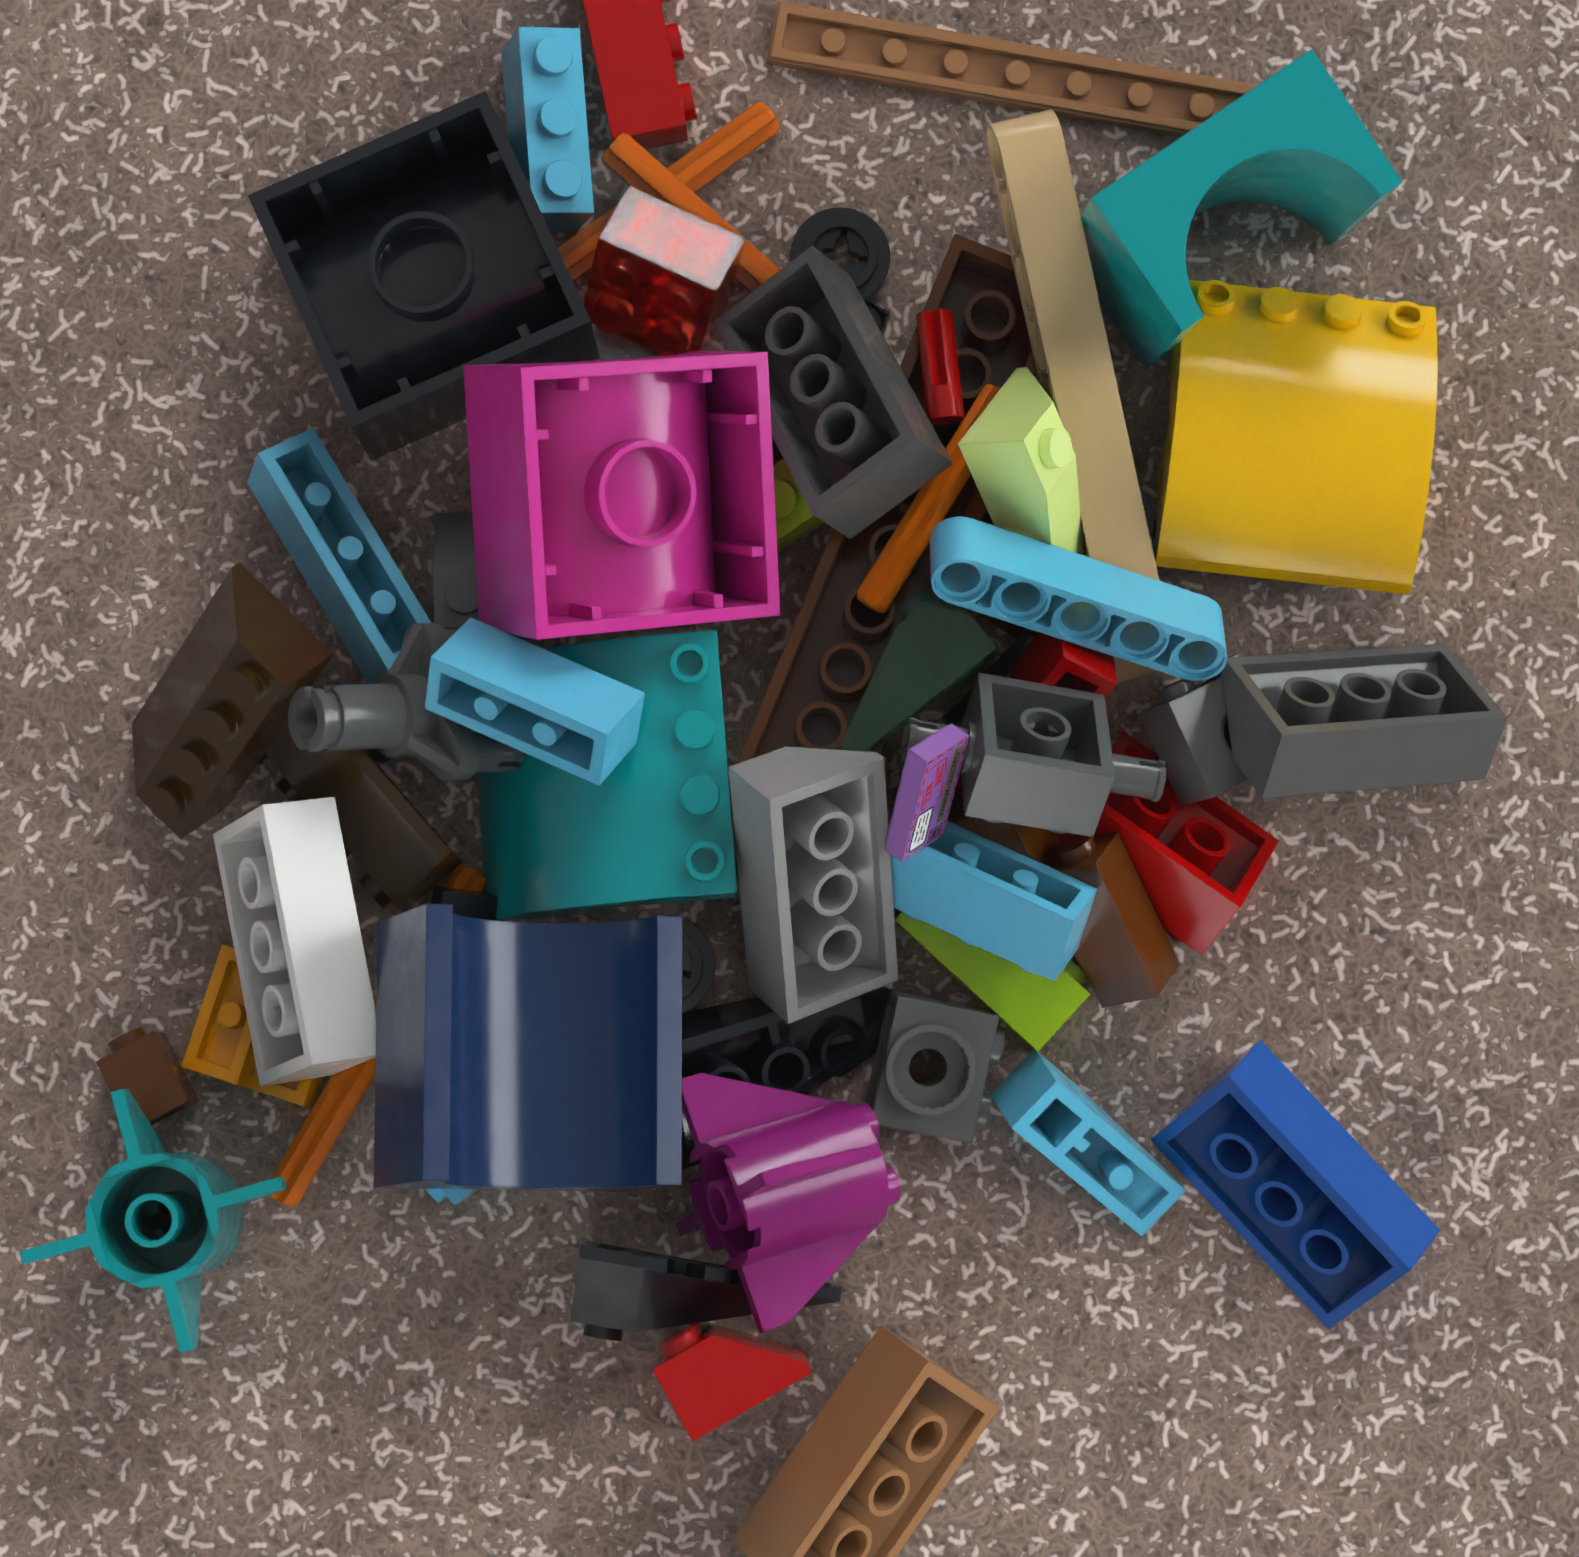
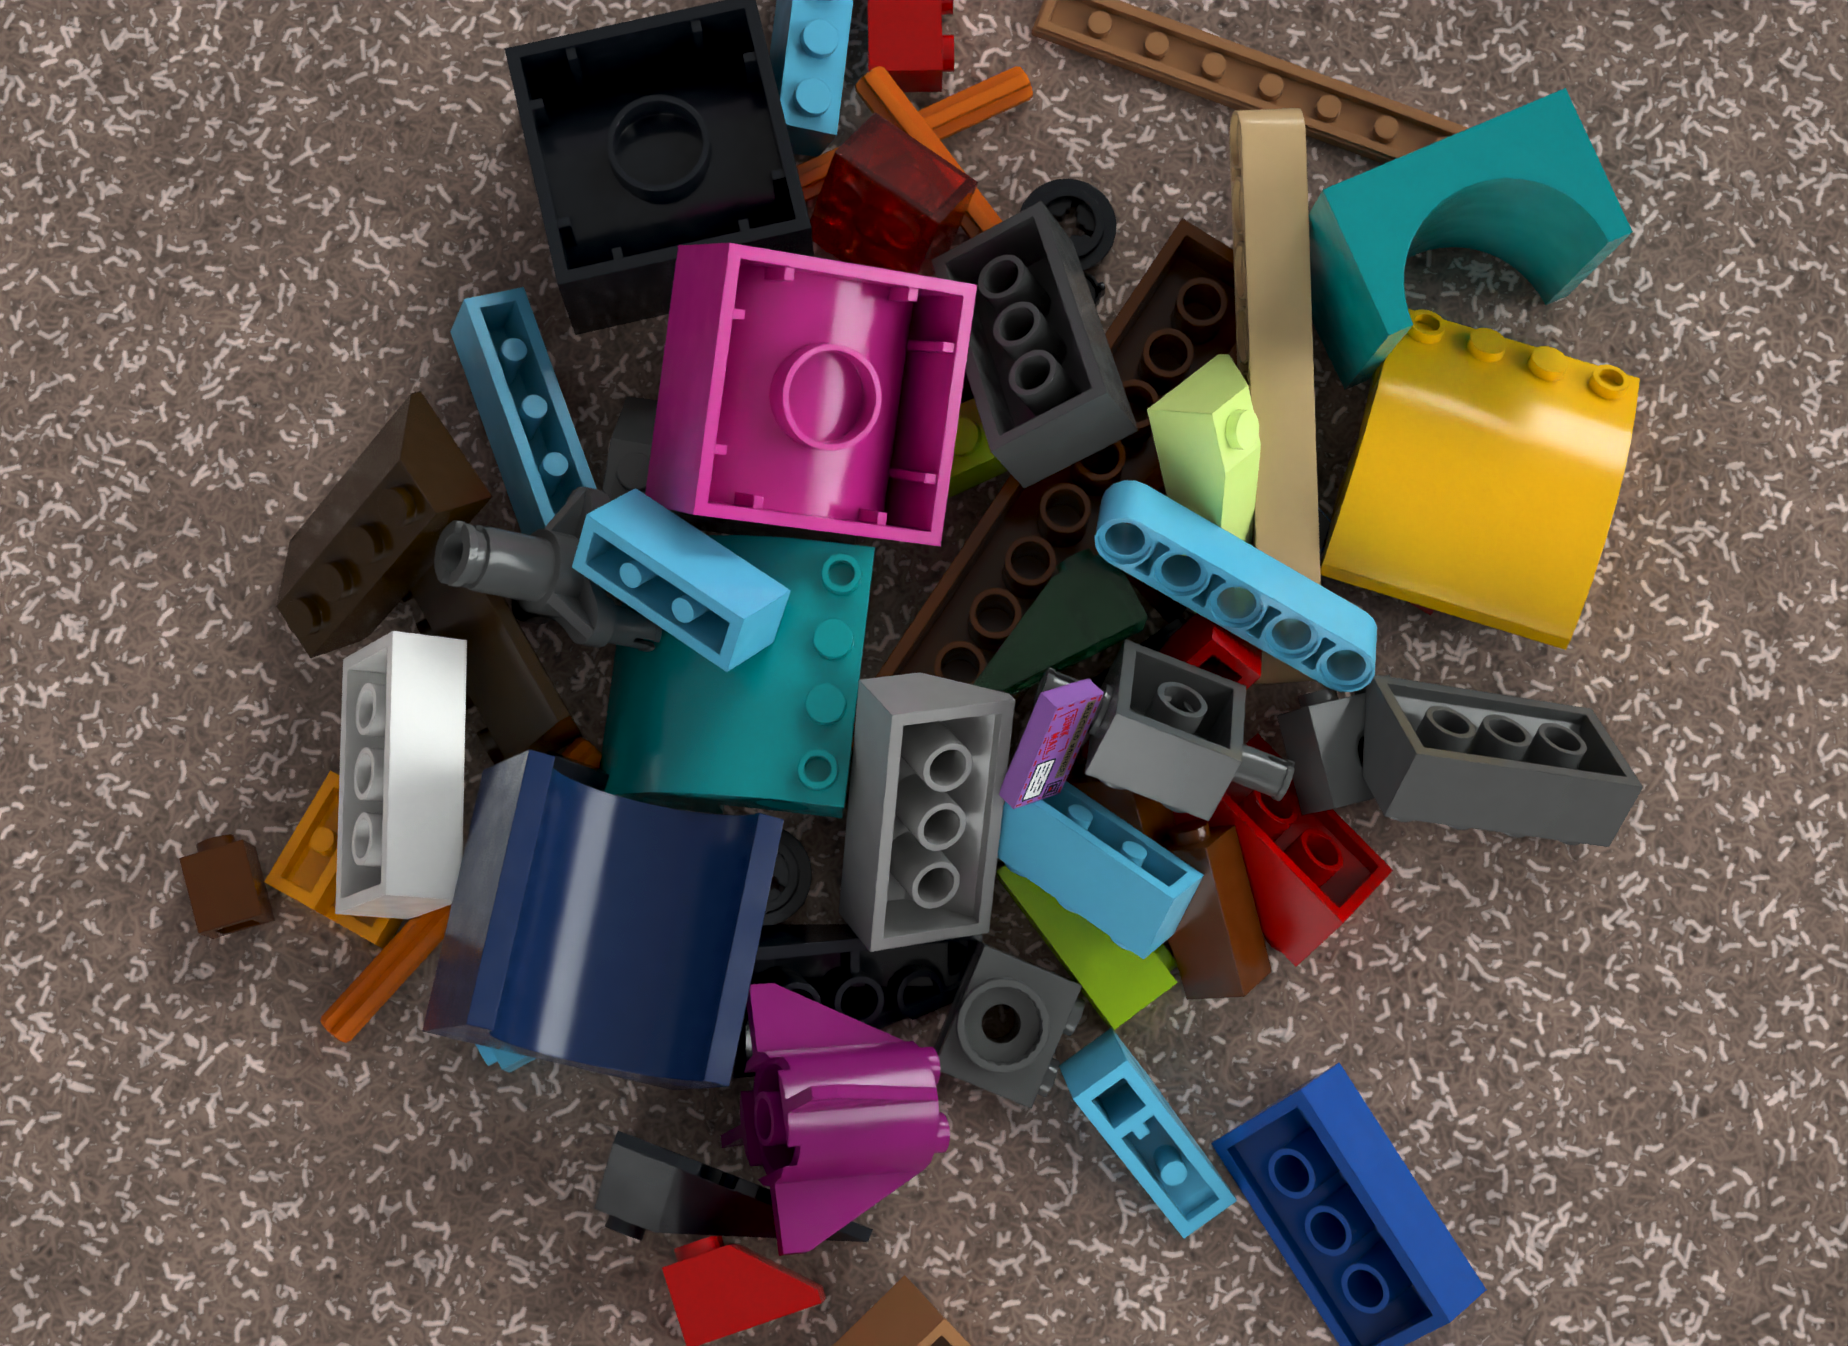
camera: 10 degrees right, 5 degrees down
(127, 1225) = (206, 1024): teal brick -> none
(920, 519) = (1085, 494): orange axle -> none
(940, 367) = (1143, 340): red piece -> none

